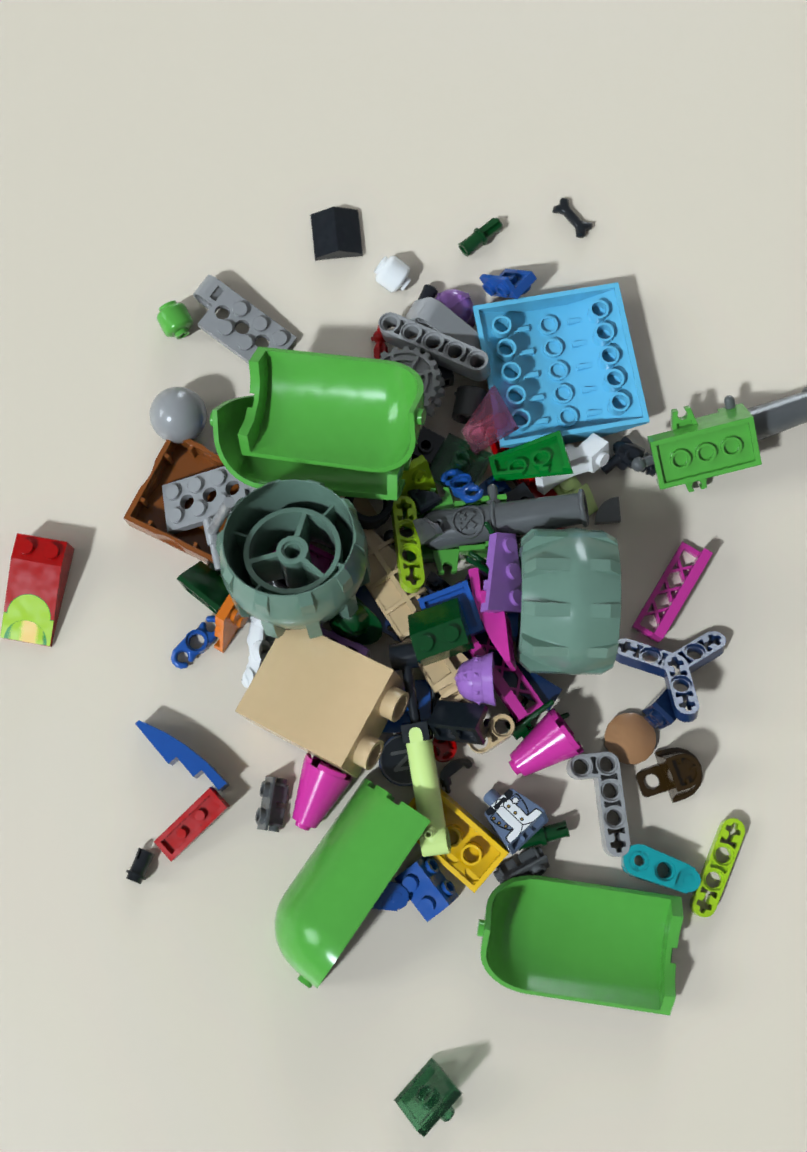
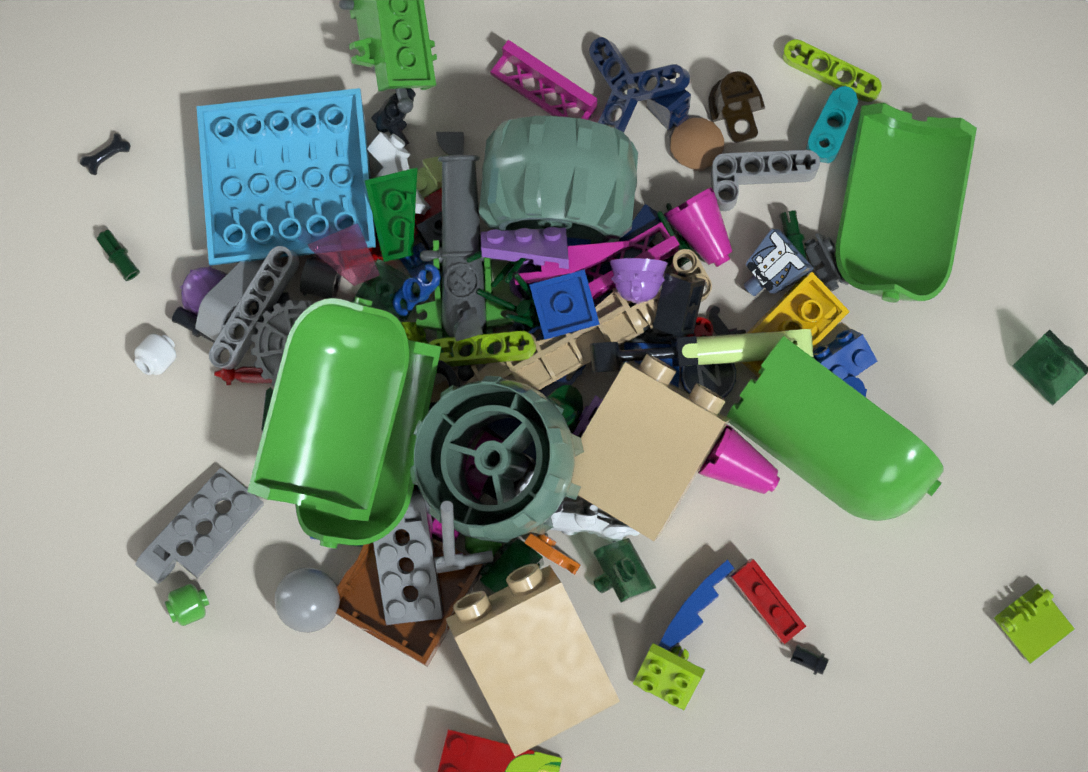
camera: 80 degrees left, 0 degrees up
(120, 735) = (669, 675): none -> lime plate
(124, 606) = (531, 657): none -> tan brick
(180, 1084) = (1034, 623): none -> lime hinge
(184, 645) = (579, 597): blue piece -> none
(213, 688) = (622, 571): none -> clear green tile
(269, 813) = (762, 519): dark grey hinge -> none
(336, 233) = (95, 418): black slope -> none
(424, 500) = (430, 329): black tile -> none
(439, 632) = (583, 315): dark green slope -> none
(449, 580) = (526, 309): none -> dark green plant
(509, 283) = (182, 225): blue bracket -> none

